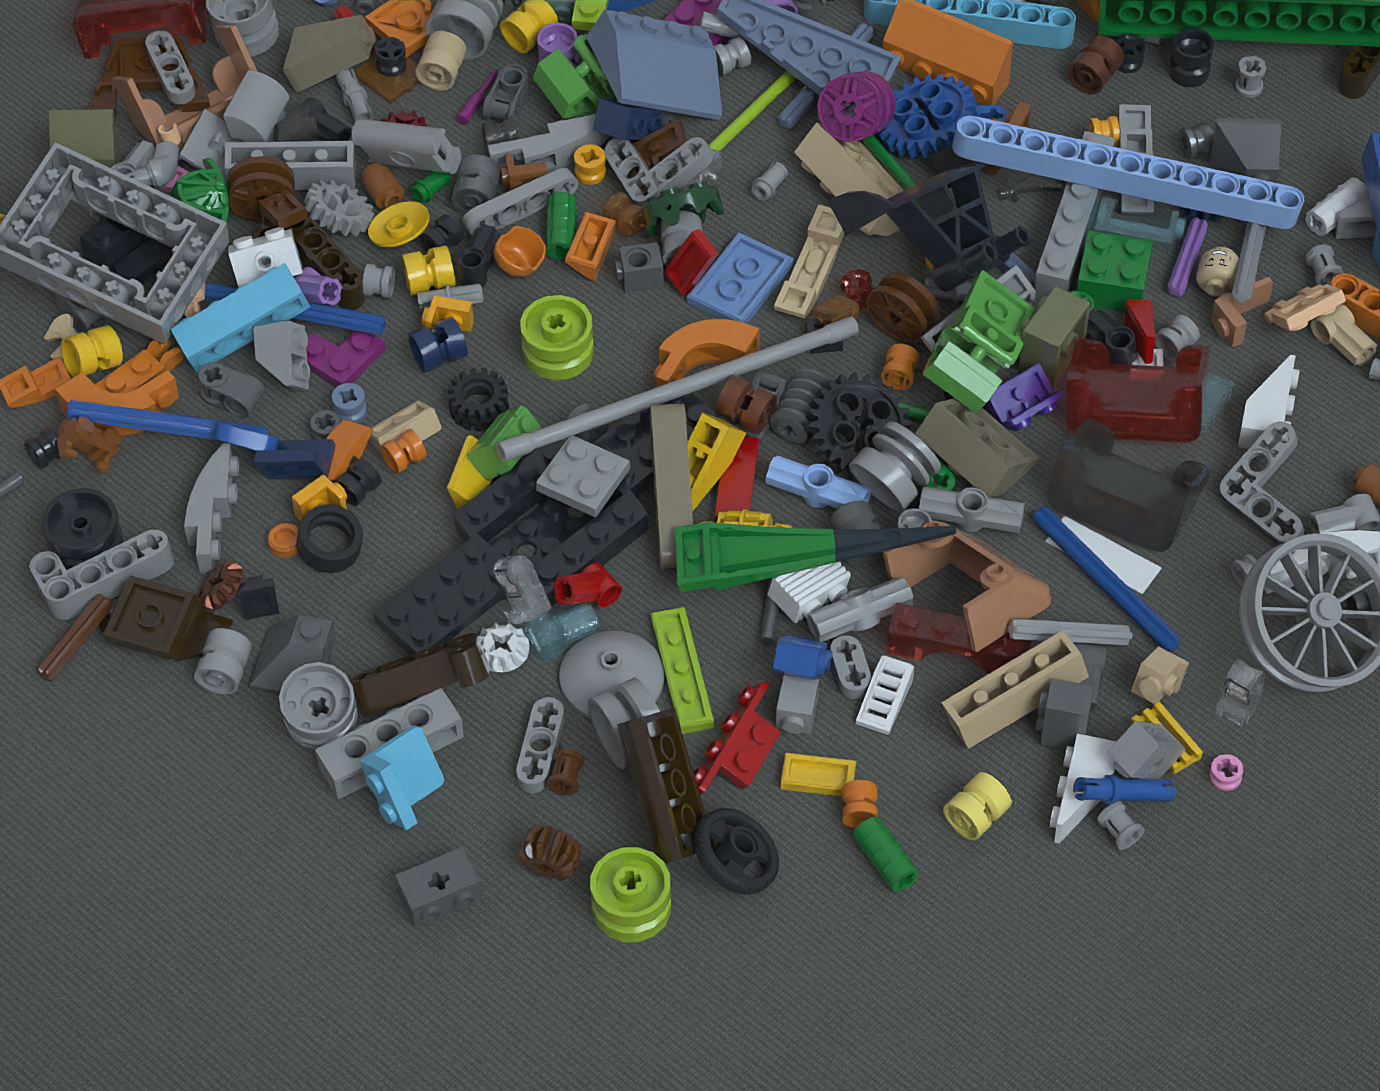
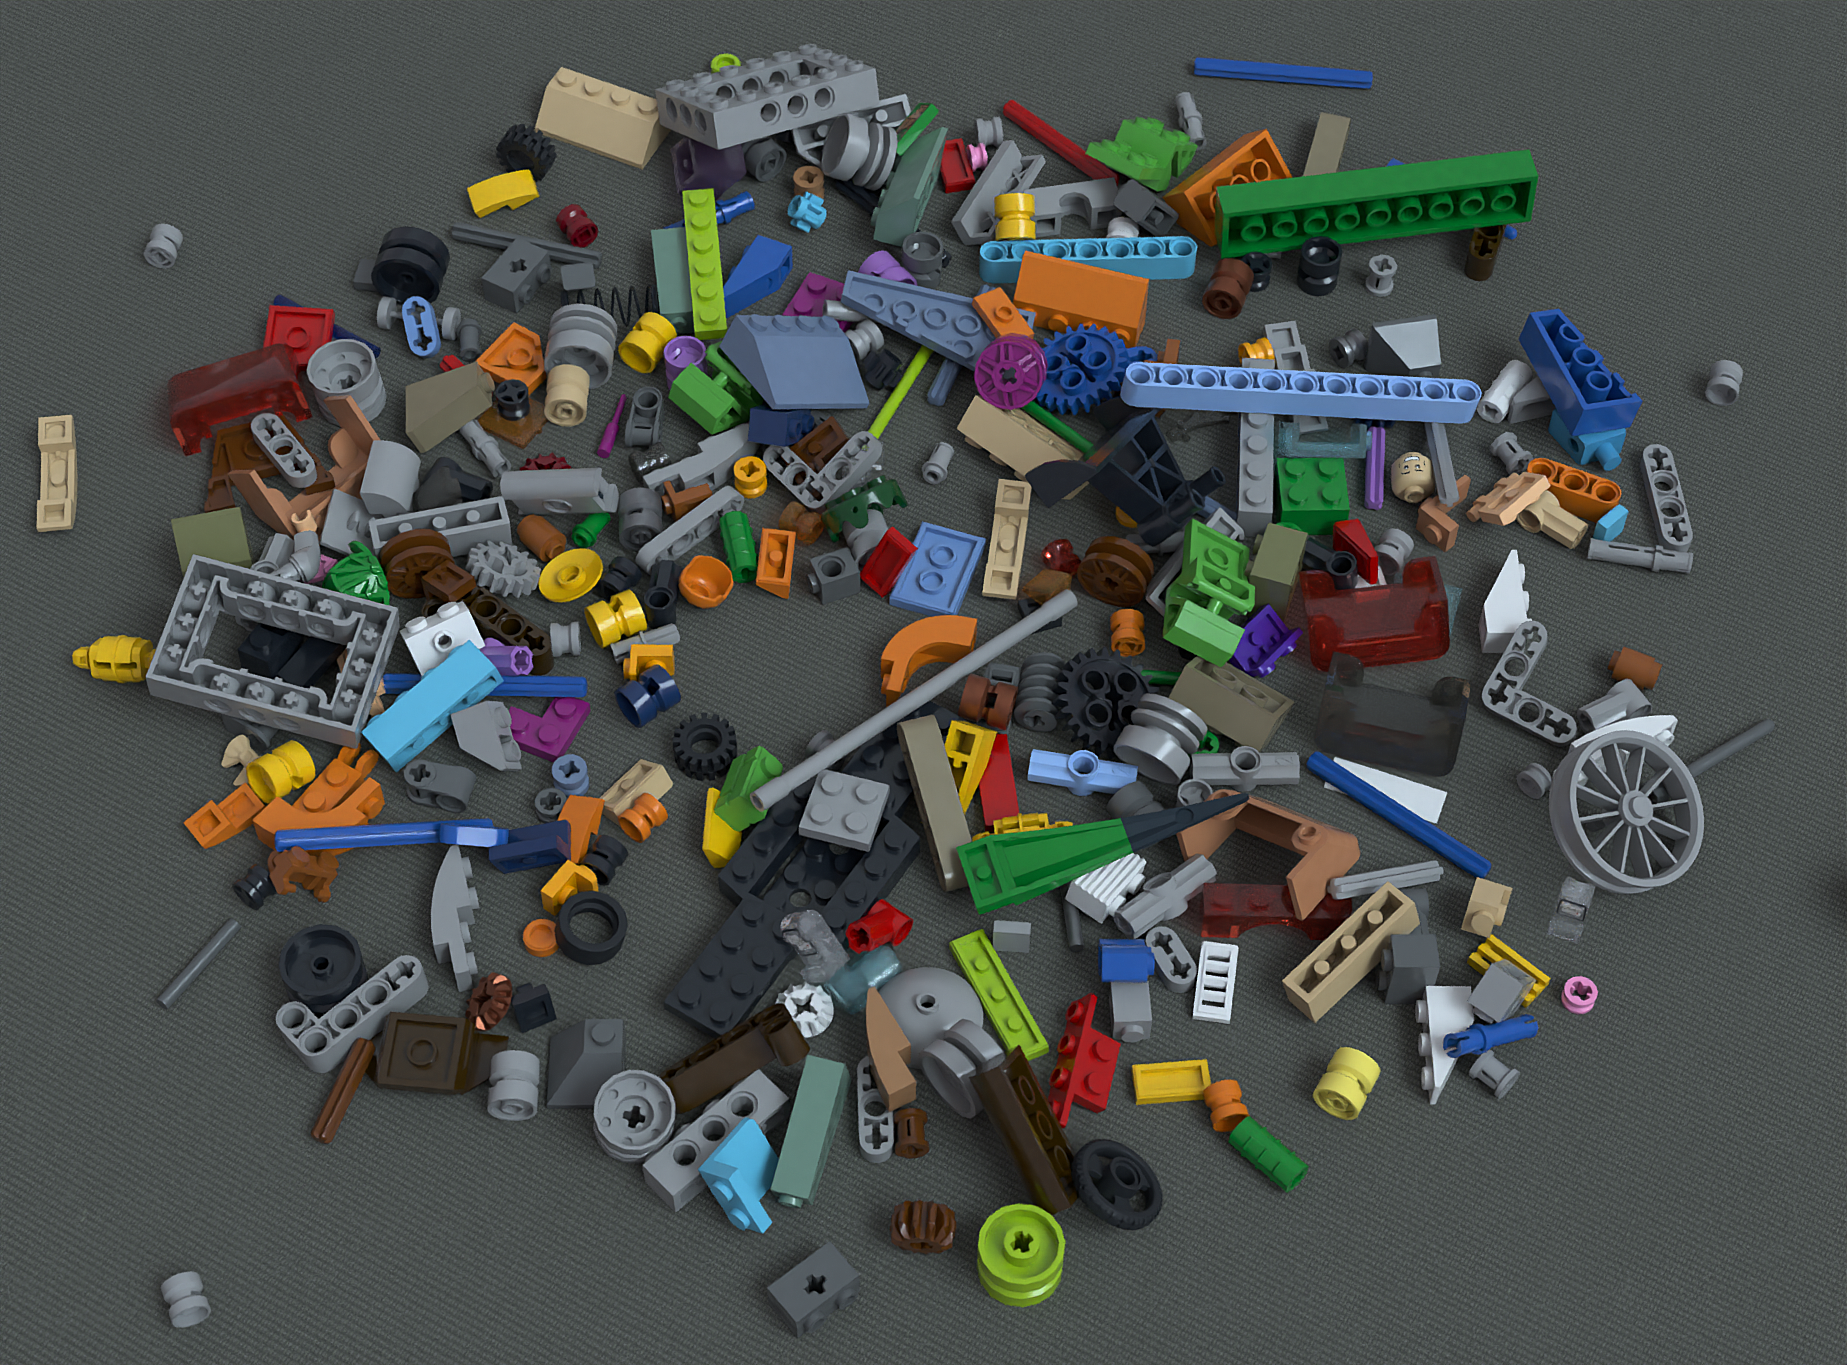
camera: 15 degrees left, 0 degrees up
(474, 750) = (810, 1131): none -> sand green slope
(557, 337) = (770, 666): lime wheel -> none
(561, 696) = (888, 1054): none -> medium nougat slope
(708, 618) = (1011, 936): none -> light grey tile
(742, 85) = (883, 369): none -> black gear
(865, 52) = (1000, 314): none -> orange plate

